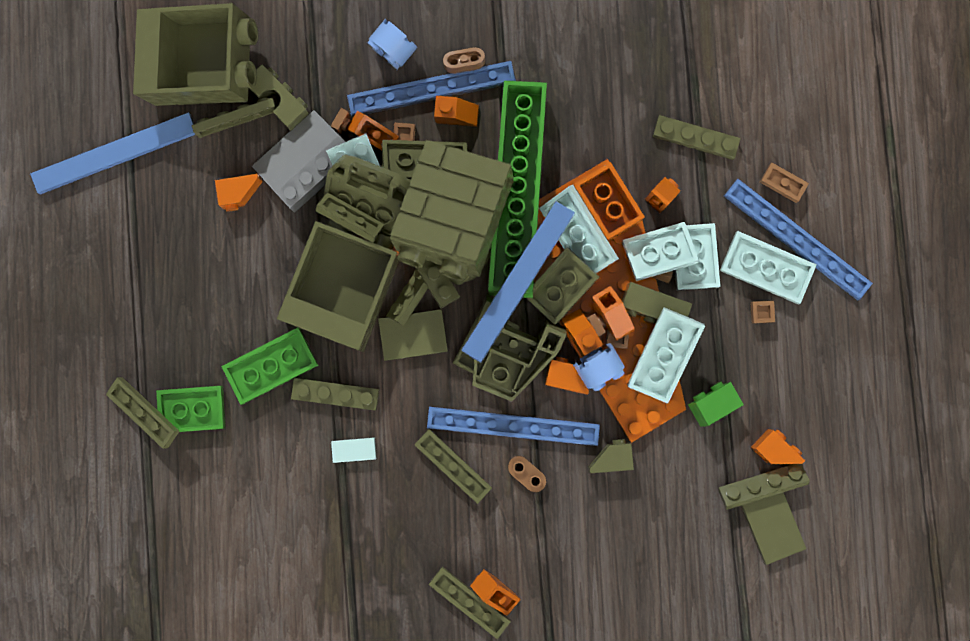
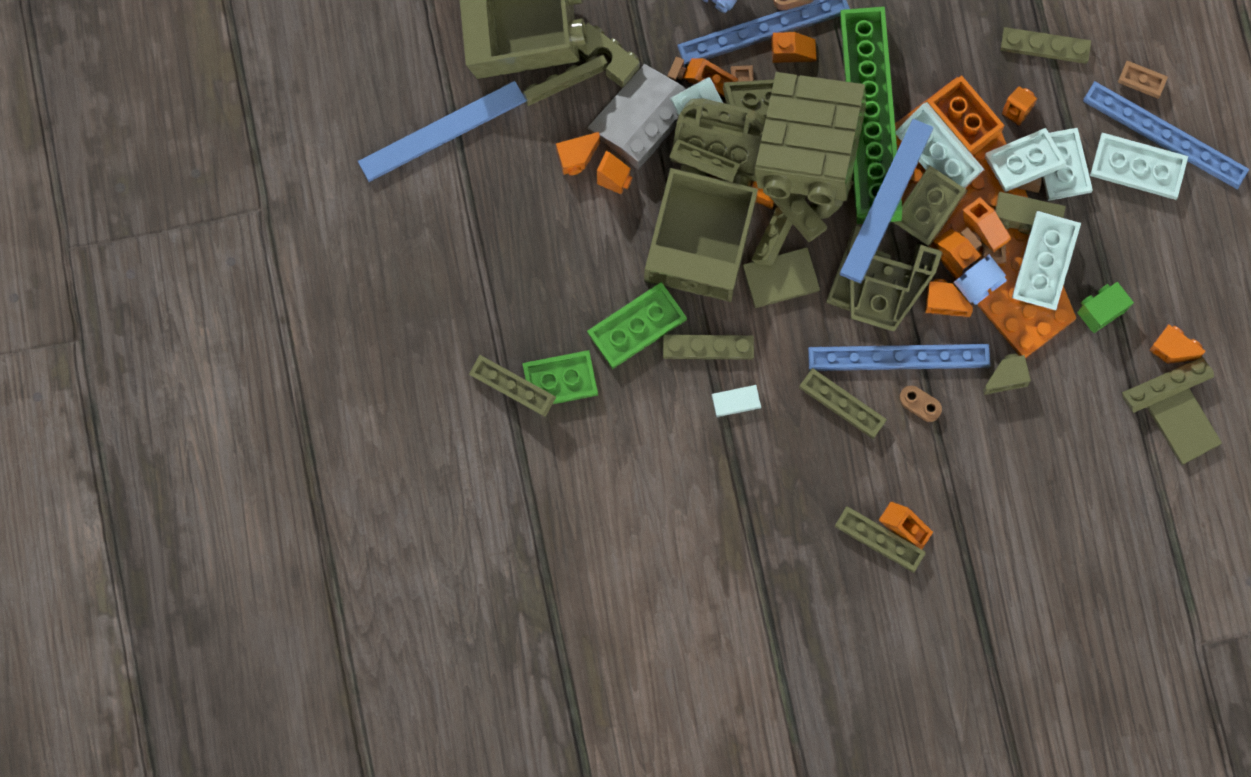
camera: 10 degrees left, 10 degrees down
(266, 216) = (613, 173): none -> orange slope
(762, 312) = (1140, 211): medium nougat plate -> none

